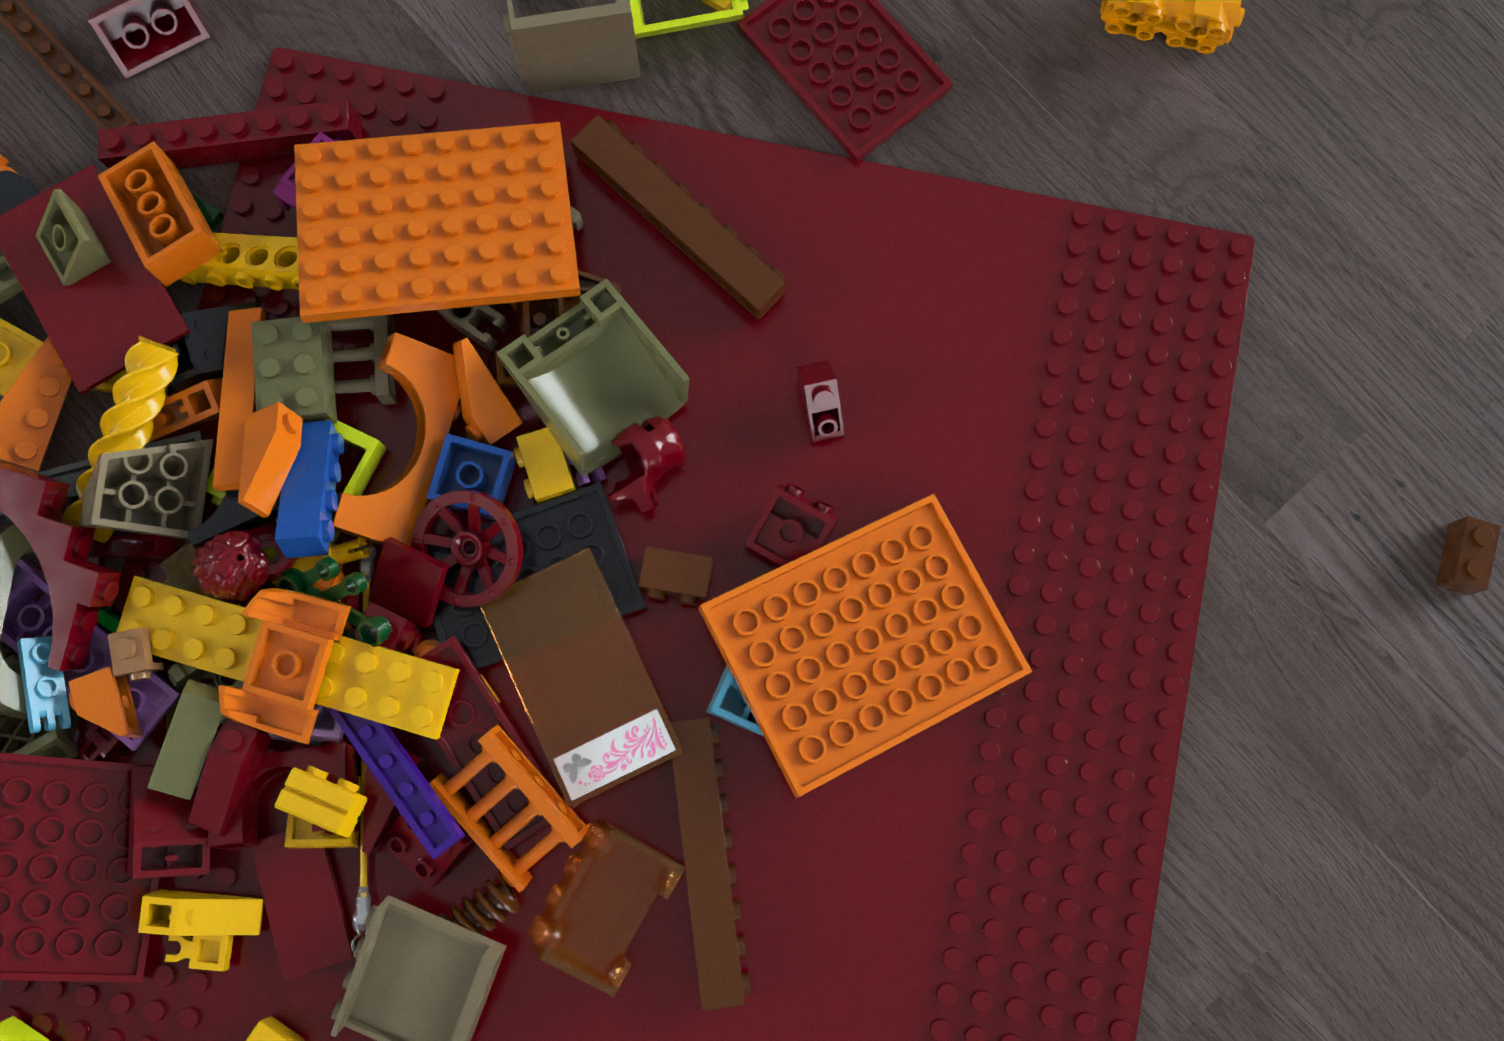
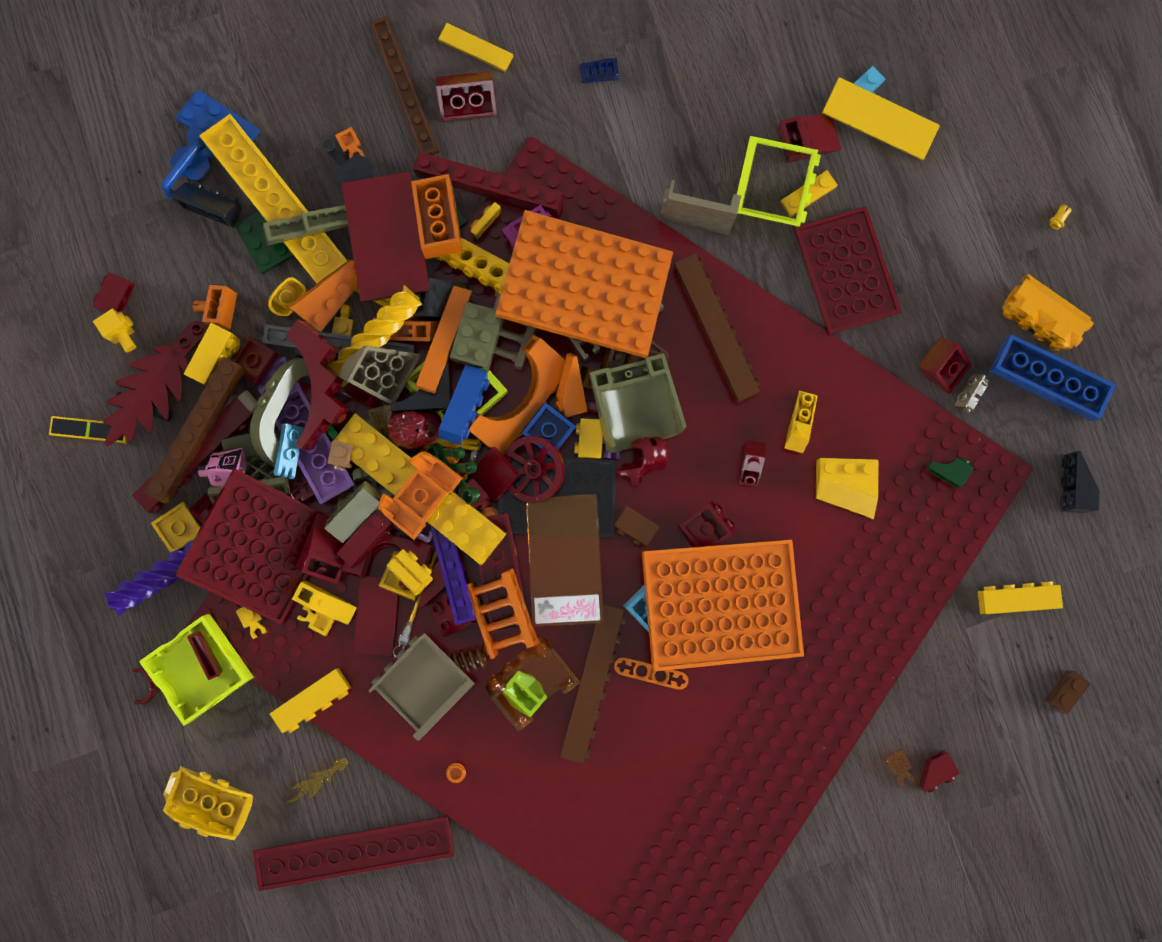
camera: 20 degrees right, 5 degrees up
(70, 240) = (384, 214): olive slope -> none
(78, 442) = (343, 325): none -> yellow plate
(90, 997) = (251, 619): none -> yellow plate
(106, 702) = (317, 474): orange slope -> none
(247, 196) = (480, 226): none -> yellow plate
(268, 453) = (450, 380): orange slope -> none
(599, 926) = (524, 693): none -> lime slope
(797, 807) = (650, 676): none -> orange beam
(871, 307) = (801, 422): none -> yellow slope
(985, 370) = (848, 484): none -> yellow wedge
(1053, 135) = (945, 364): none -> dark red slope
(1113, 148) = (975, 385): none -> dark tan hinge
(1138, 291) = (953, 473): none -> dark green arch
(1224, 90) = (1052, 378): none -> blue brick
(1260, 786) = (899, 765): none -> clear orange plate
(1324, 768) = (937, 770): none -> dark red slope
(1327, 442) = (1020, 599): none -> yellow brick
(1337, 230) = (1078, 485): none -> black slope

